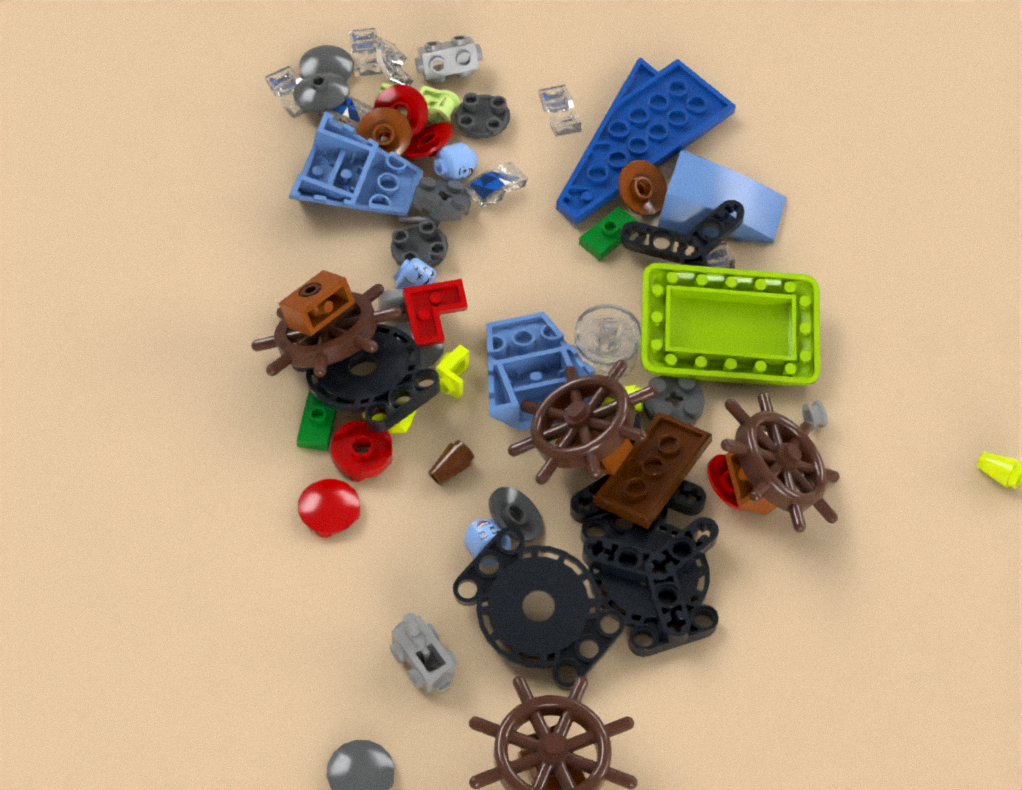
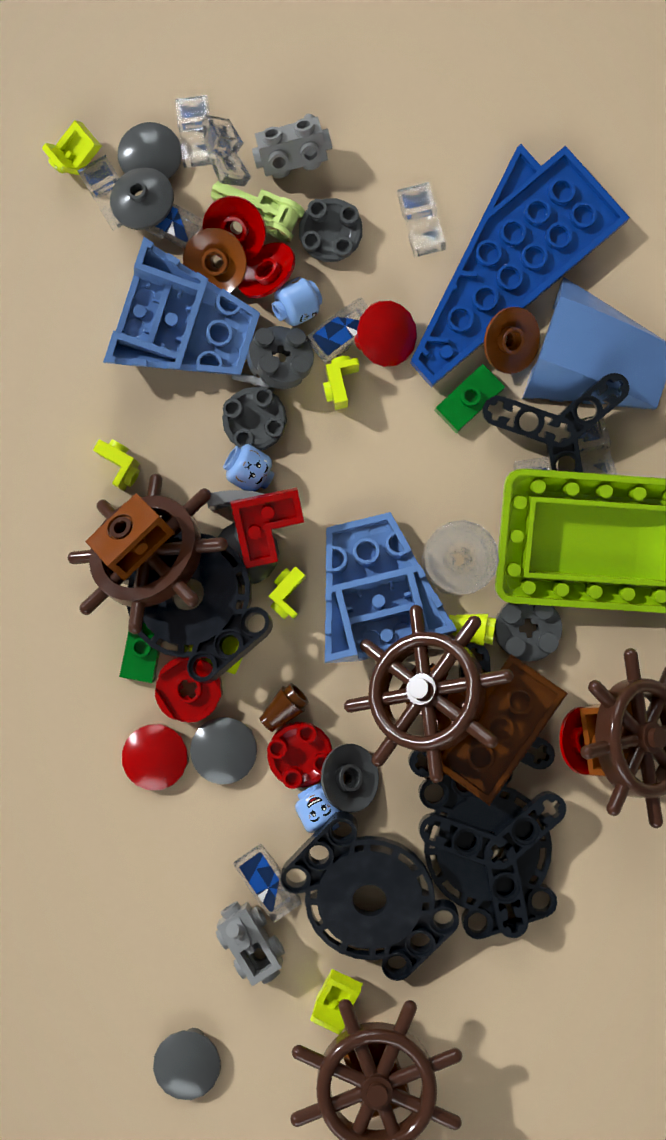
camera: 10 degrees right, 30 degrees up
(262, 61) = (73, 149): none -> neon yellow bracket
(294, 270) = (118, 455): none -> neon yellow bracket
(394, 500) = (223, 750): none -> dark grey dish
(439, 607) = (263, 879): none -> slope
(464, 499) = (298, 754): none -> red dish
(492, 212) = (335, 388): none -> neon yellow bracket
(504, 700) = (335, 988): none -> neon yellow bracket
(533, 184) = (386, 333): none -> red dish

